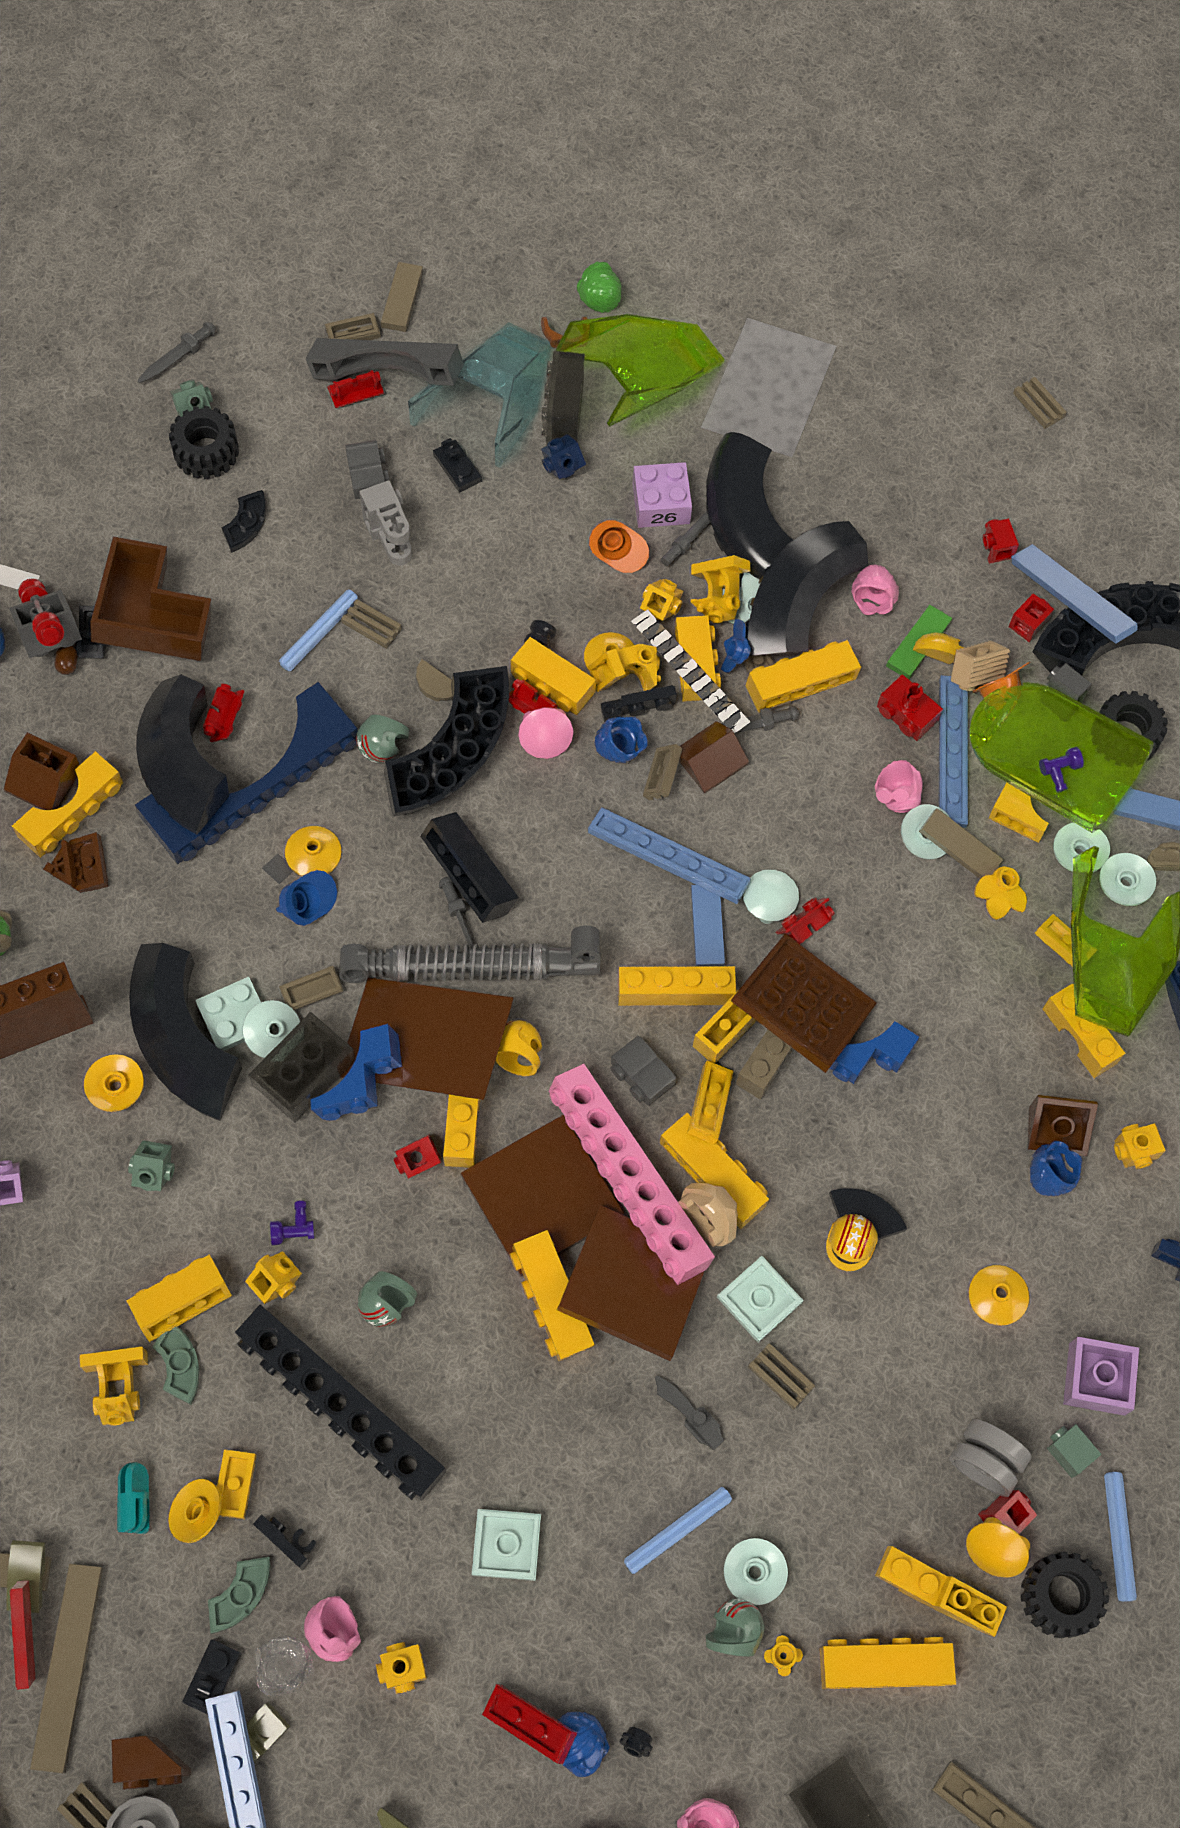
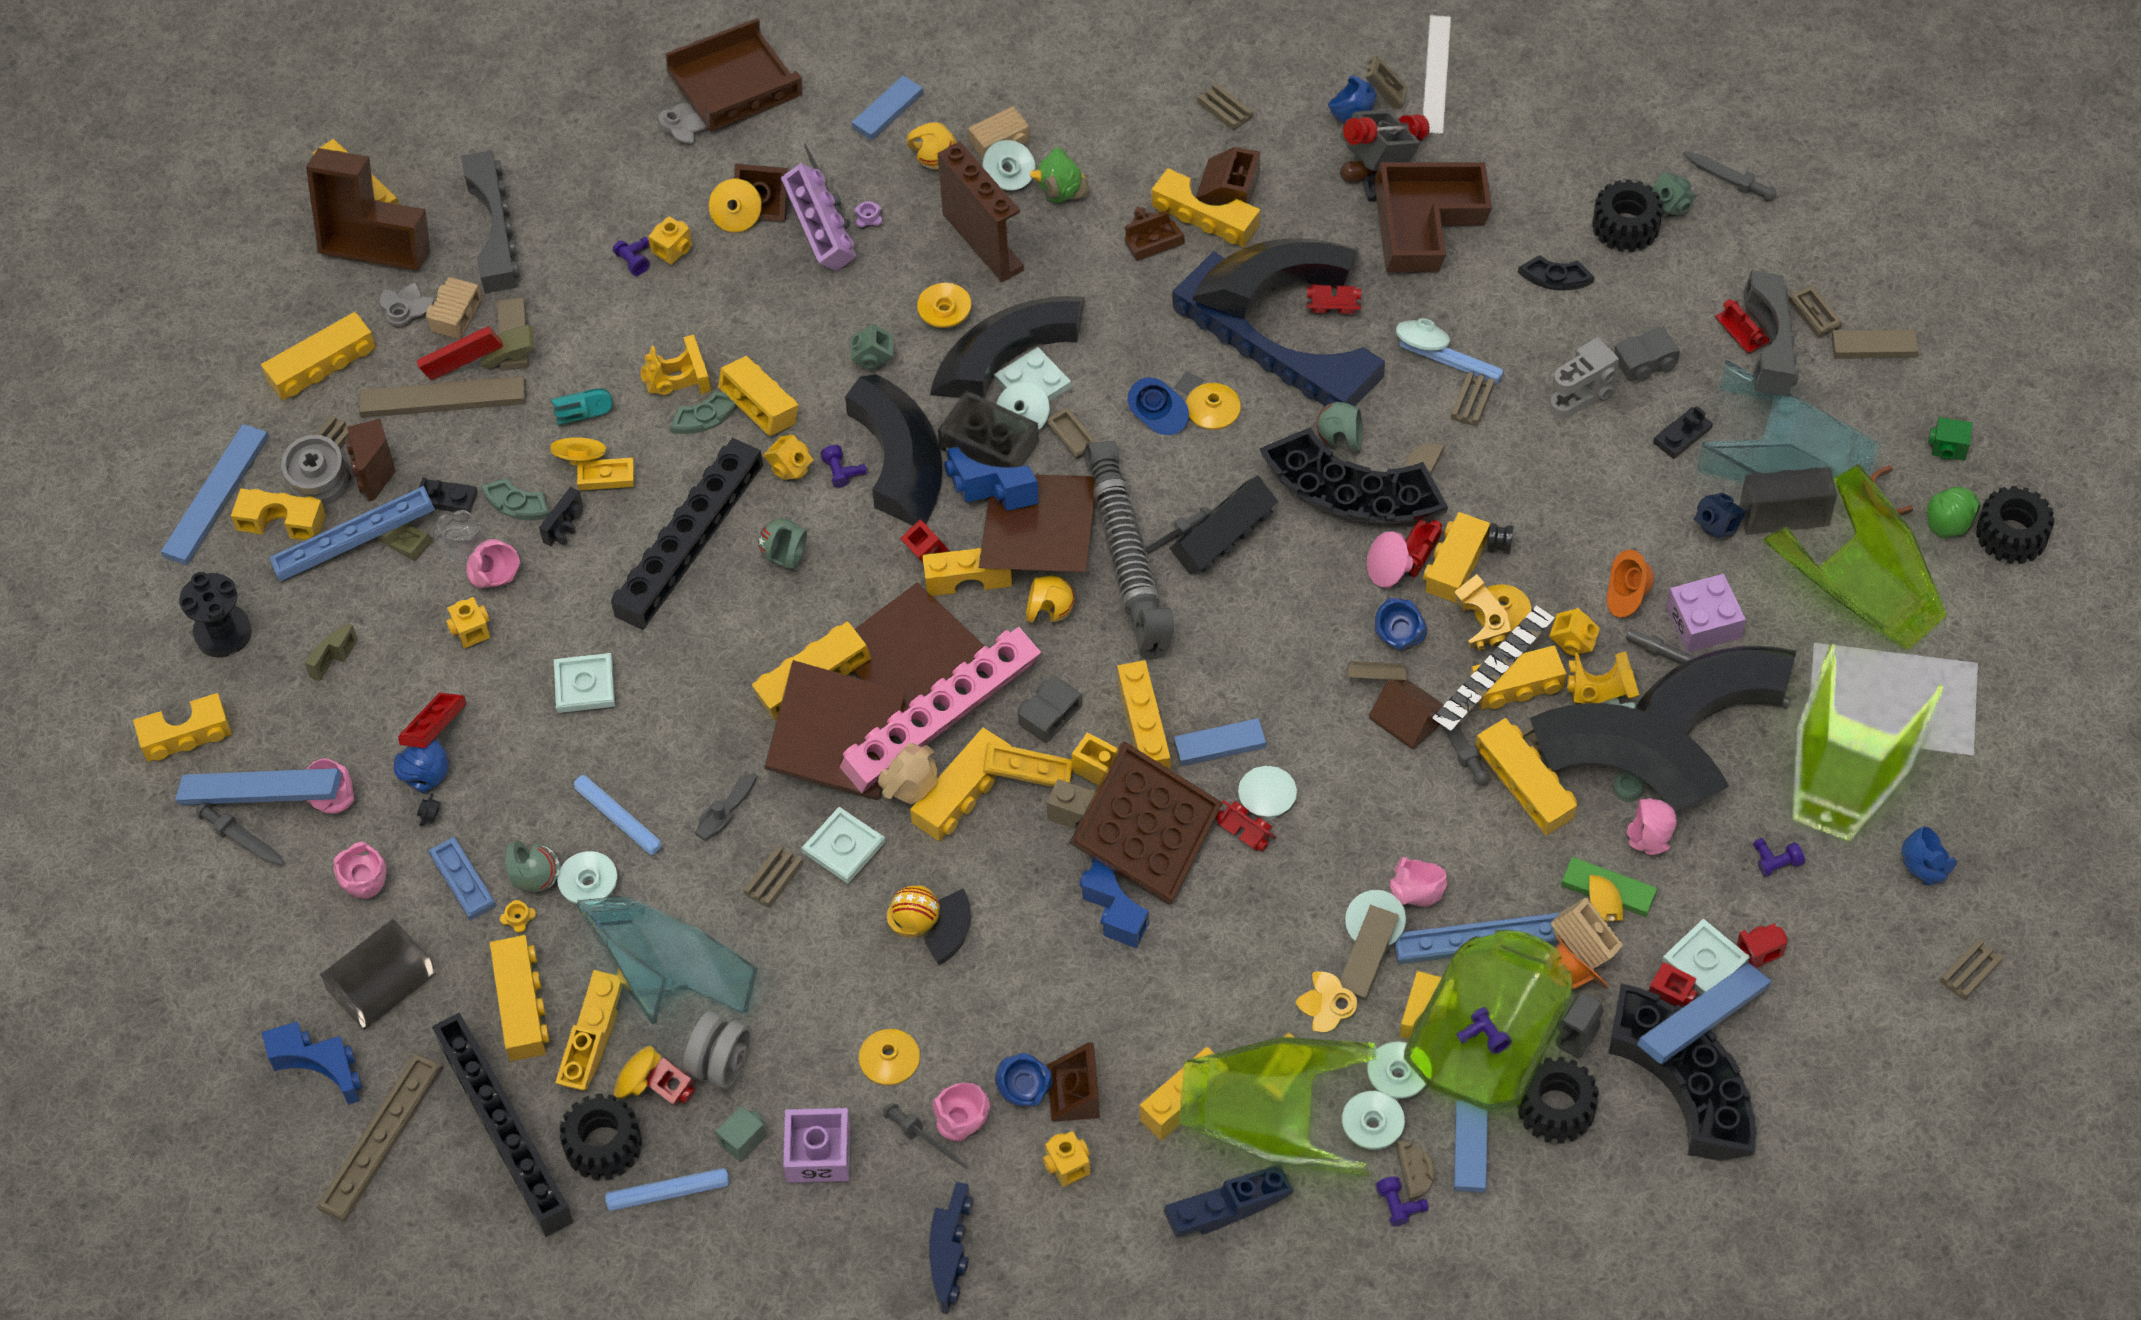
camera: 85 degrees right, 10 degrees down
(284, 1154) = (909, 444): none -> black brick
(289, 646) = (1422, 334): none -> light aqua dish
(523, 268) = (1950, 438): none -> green brick
(628, 231) = (2012, 542): none -> black tyre
(638, 702) = (1449, 635): black hinge -> none
(669, 855) = (1285, 693): medium blue tile -> none
(724, 1714) = (462, 878): none -> medium blue tile
(736, 647) = (1534, 705): blue plate -> none
(825, 604) = (1628, 786): none -> sand green tile
(841, 419) = (1845, 765): none -> clear neon green windscreen
(862, 1507) = (665, 955): none -> clear light blue windscreen
(909, 707) = (1519, 883): red brick -> none
(913, 496) = (1793, 855): none -> dark purple piece
(938, 401) = (1927, 857): none -> blue hair
(1004, 586) = (1706, 956): none -> light aqua plate
(1038, 1699) = (502, 1125): none -> black brick
(1080, 1232) = (960, 1110): none -> bright pink hair
(1080, 1286) = (912, 1127): none -> dark grey sword

